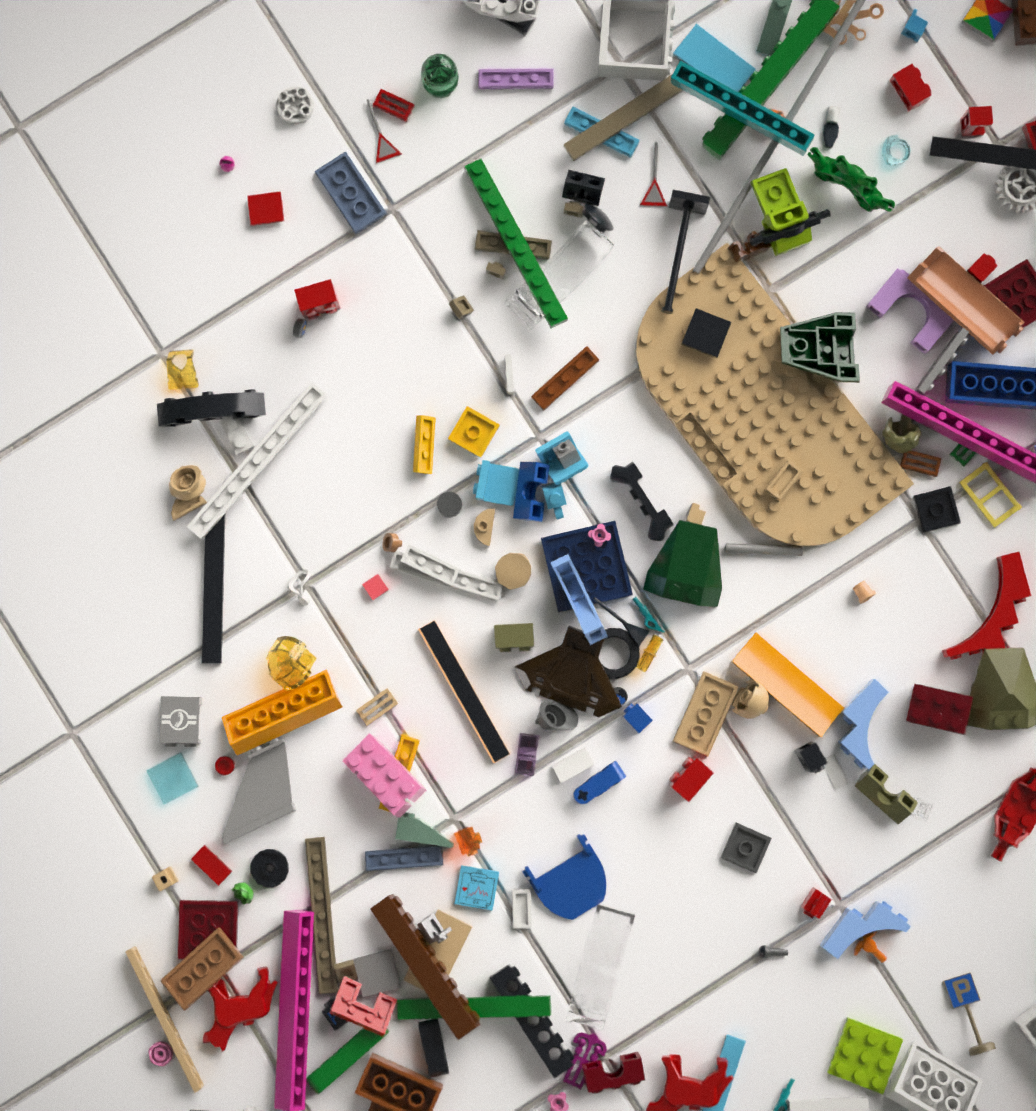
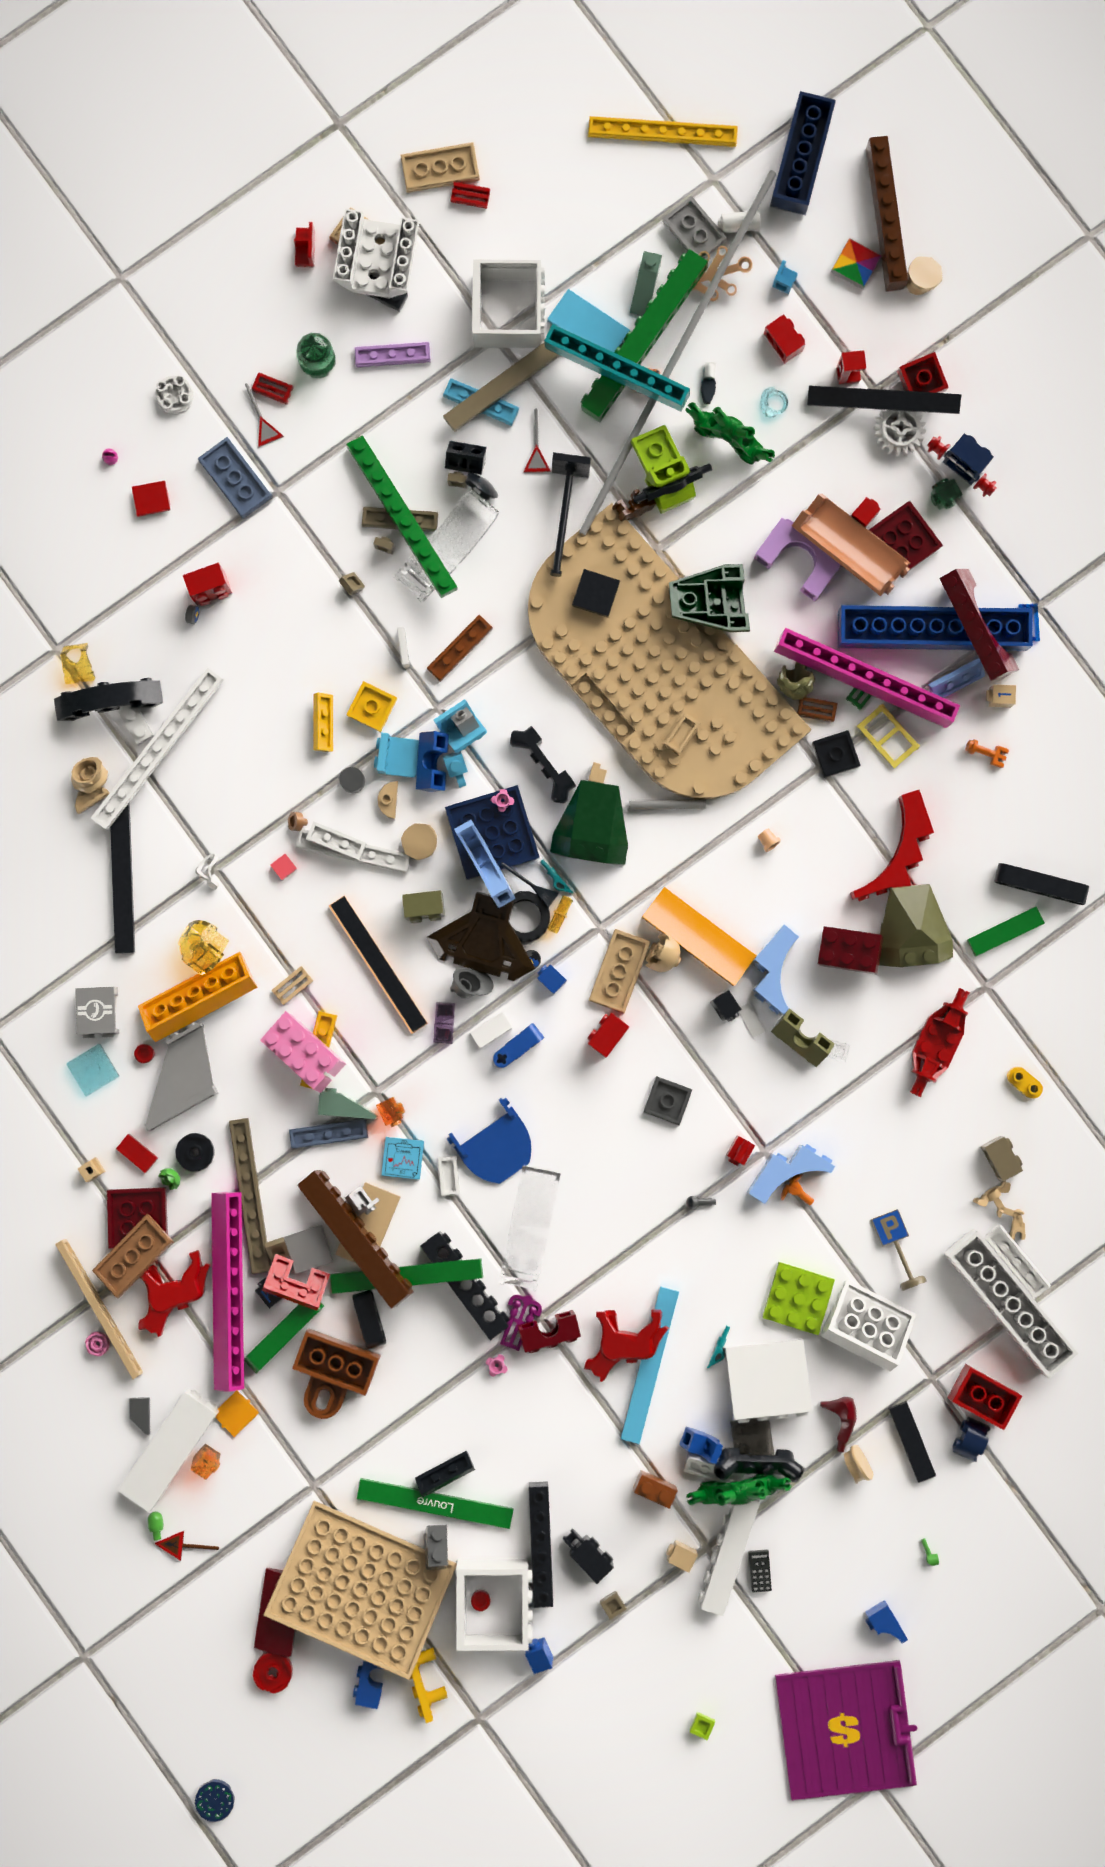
camera: 10 degrees left, 0 degrees up
(946, 357) = (833, 605): light grey plate -> none

